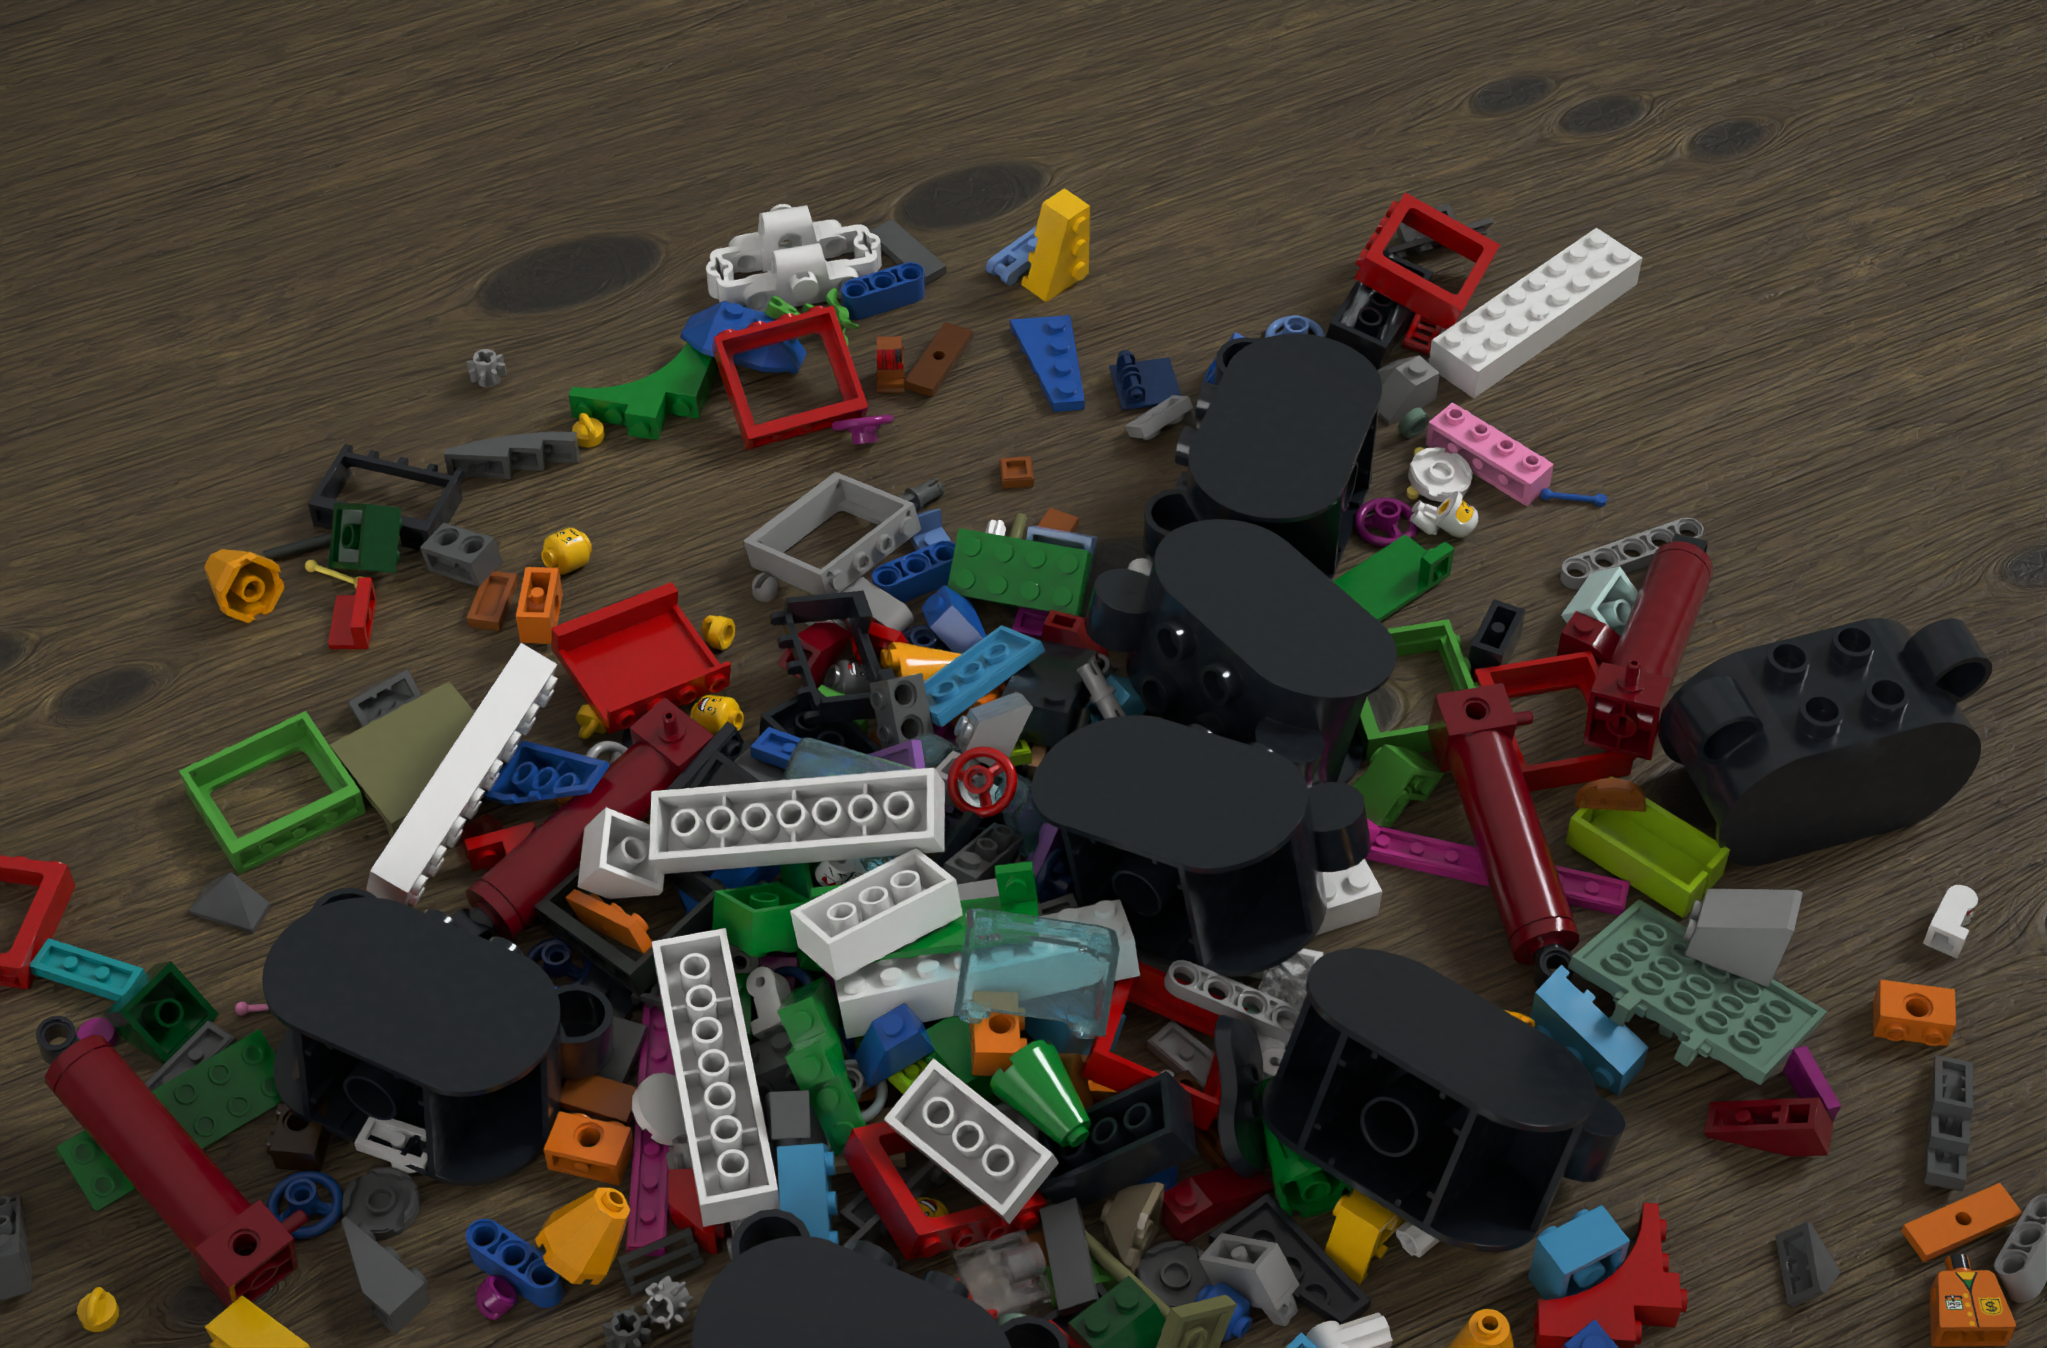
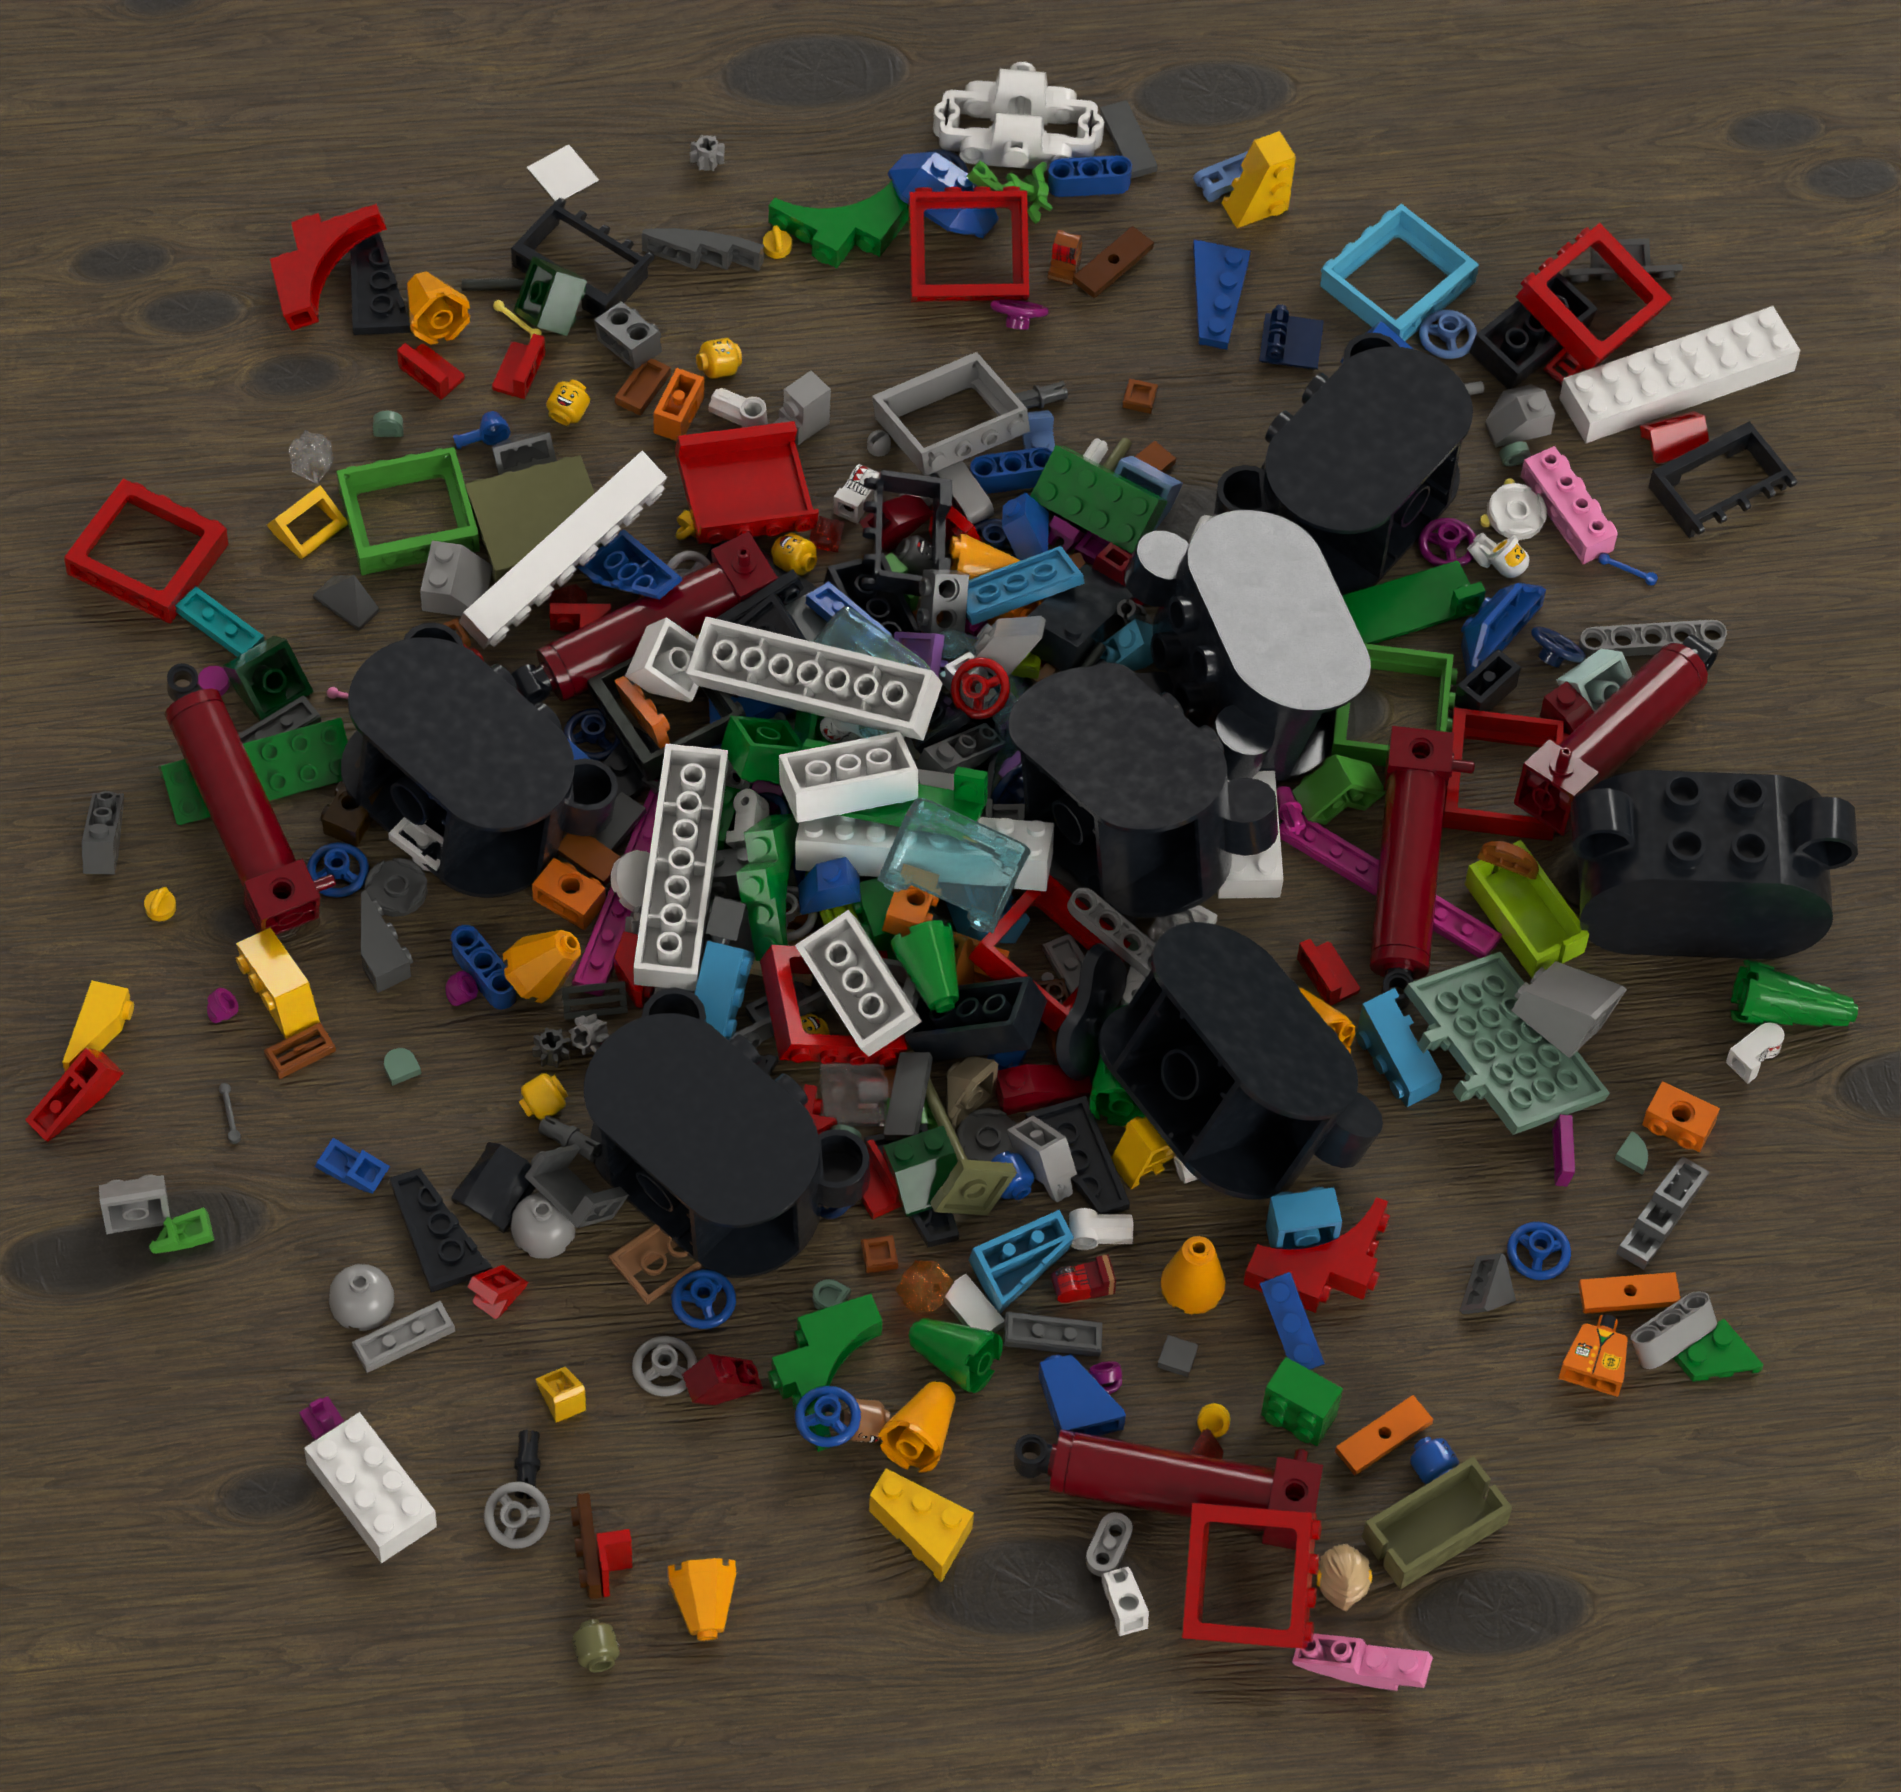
camera: 15 degrees right, 10 degrees up
(97, 558) = (320, 246): none -> red arch
(145, 766) = (311, 456): none -> clear brick
(170, 584) = (375, 294): none -> black wing
(171, 808) = (323, 501): none -> yellow tile
(223, 711) = (388, 424): none -> sand green tile
(253, 646) = (429, 369): none -> red panel
(340, 426) = (563, 173): none -> white sticker
(342, 686) = (492, 431): none -> blue bar
(345, 847) = (453, 579): none -> light grey slope
(417, 636) = (568, 402): none -> yellow head
(602, 593) = (738, 409): none -> white piece
(678, 561) = (806, 404): none -> light grey hinge
(719, 633) = (825, 475): yellow tile -> none
(744, 688) = (827, 534): none -> clear red tile
(759, 638) = (854, 494): none -> white leg
(994, 614) = (1064, 530): none -> magenta tile
(1100, 691) = (1120, 635): light grey pin -> none
(1167, 412) = (1279, 382): light grey plate -> none
(1231, 261) = (1425, 240): none -> medium azure piece
(1467, 972) = (1327, 971): none -> red panel
(1474, 581) = (1499, 622): none -> blue wedge
(1544, 587) = (1556, 647): none -> dark blue piece
(1560, 366) = (1675, 435): none -> red panel
(1625, 350) = (1729, 444): none -> black hinge
(1772, 1125) = (1516, 1170): dark red slope -> none
(1844, 1191) = (1543, 1237): none -> blue piece
(1883, 1068) = (1633, 1153): none -> sand green tile
(1937, 859) = (1784, 999): none -> green cone

